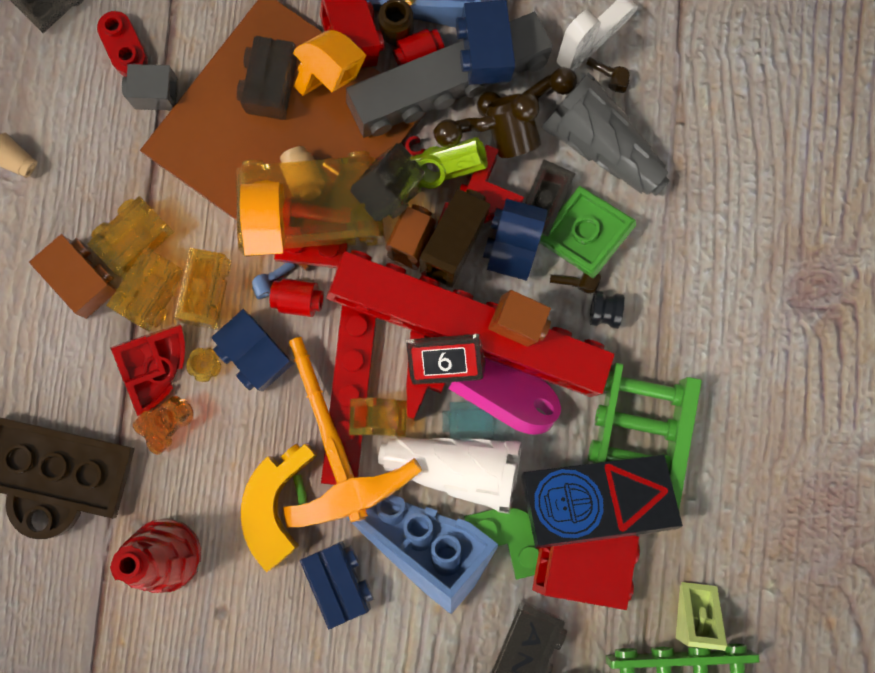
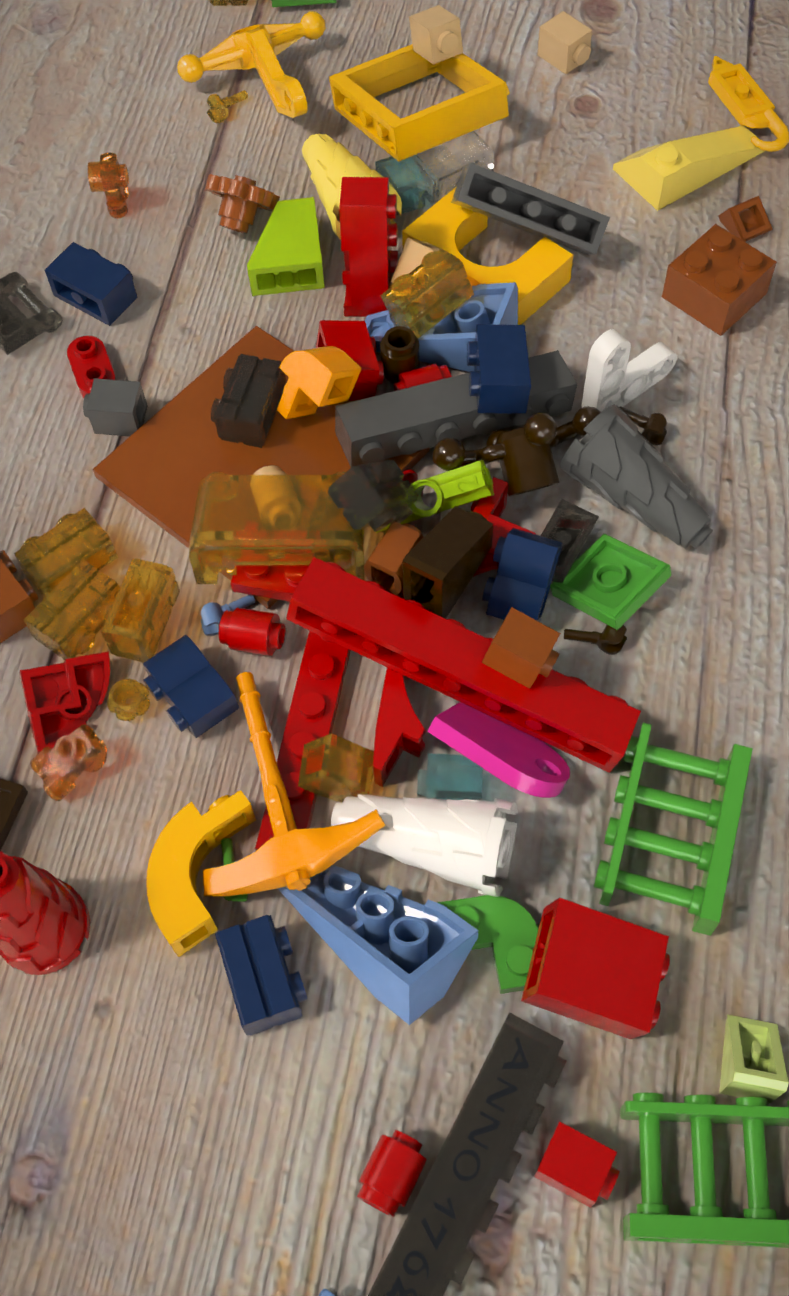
camera: 10 degrees right, 20 degrees down
(262, 217) = (221, 506): light orange brick -> none
(445, 359) = (426, 691): slope -> none
(600, 501) = (617, 878): black tile -> none
(606, 309) = (633, 667): black wheel -> none

